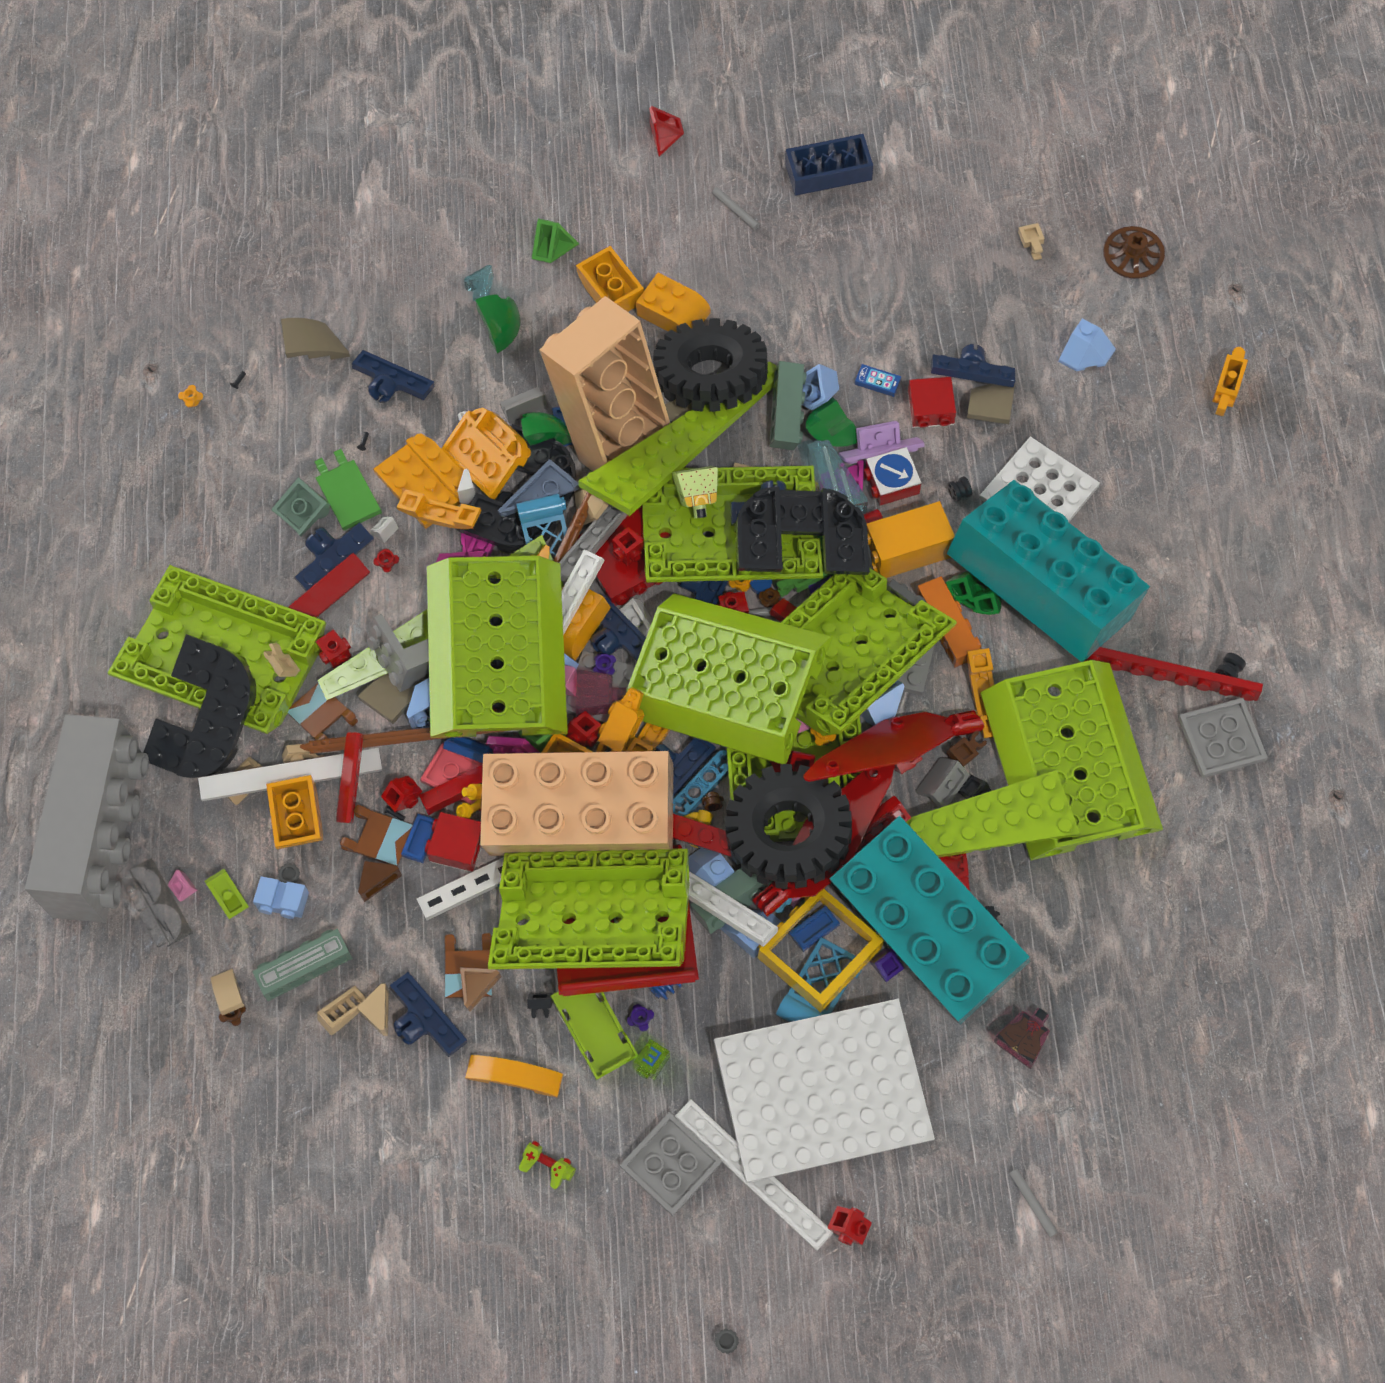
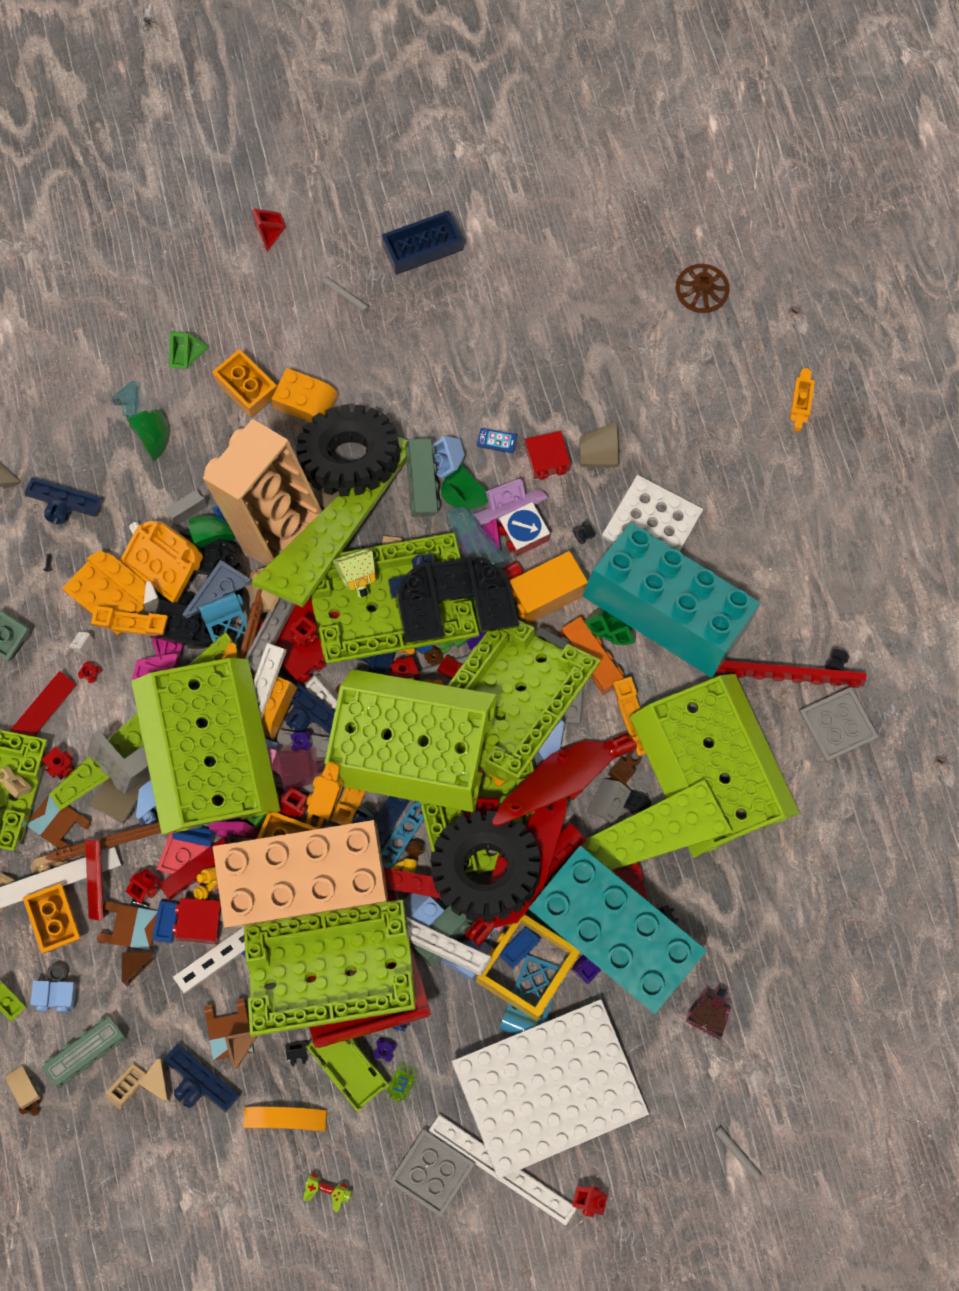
camera: 15 degrees left, 5 degrees up
(331, 552) = (38, 674): dark blue plate -> none
(346, 492) = (42, 613): bright green tile -> none
(973, 367) = (578, 419): dark blue plate -> none
(1032, 237) = (612, 287): tan plate -> none
(1087, 347) = (674, 385): light blue slope -> none

